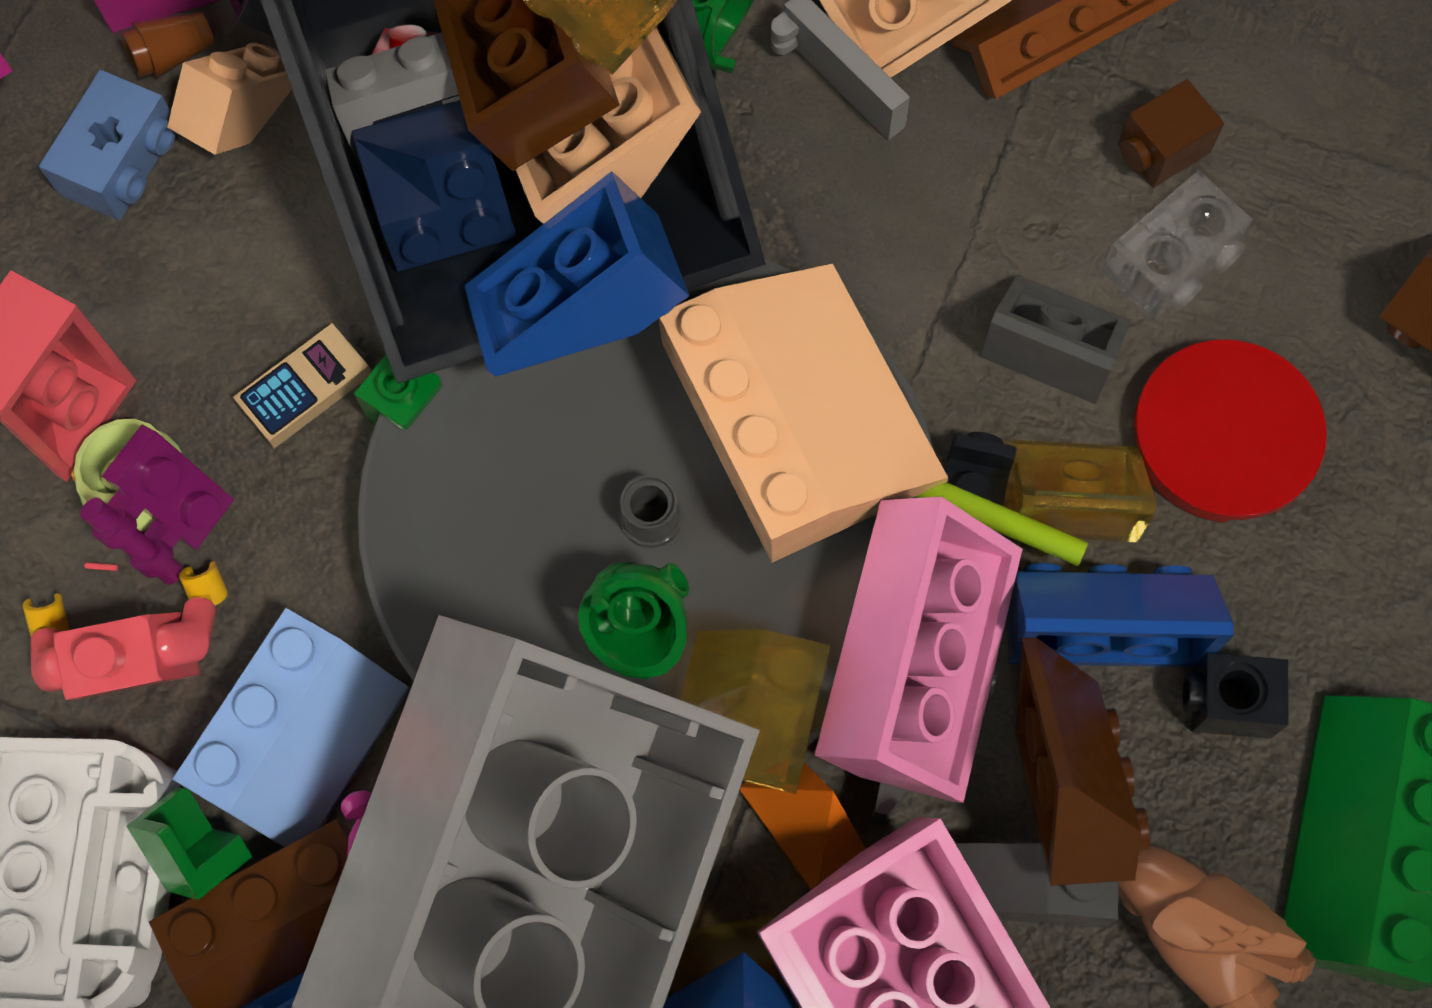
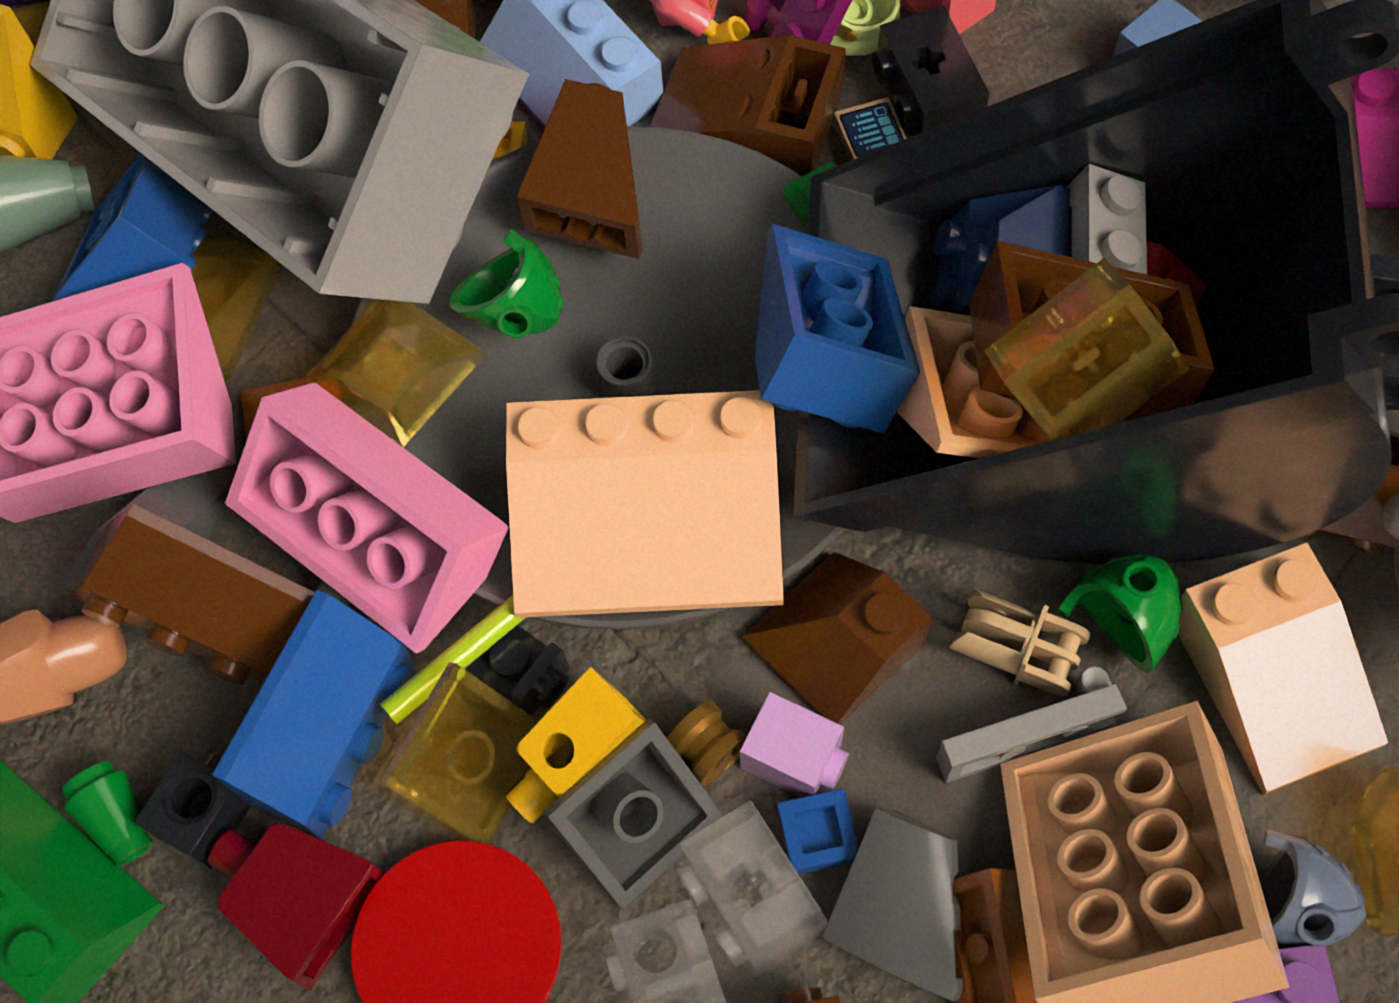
camera: 115 degrees right, 5 degrees down
(167, 362) = (928, 70): none -> black brick
(290, 518) = (758, 94): none -> reddish brown slope
(476, 582) = (583, 174): none -> reddish brown slope
(768, 83) = (1007, 637): none -> tan arm
(827, 217) = (840, 635): none -> reddish brown slope
(942, 232) = (794, 748): none -> lavender brick
(970, 299) = (707, 743): none -> pearl gold wheel
(999, 192) = (818, 831): none -> blue plate
(1027, 109) = (902, 904): none -> dark grey slope
(1028, 384) = (586, 721): none -> yellow torso
(1080, 190) = (746, 848): none -> clear brick
(1266, 569) = (292, 896): none -> dark red torso
(1279, 779) = (106, 810): none -> green cone

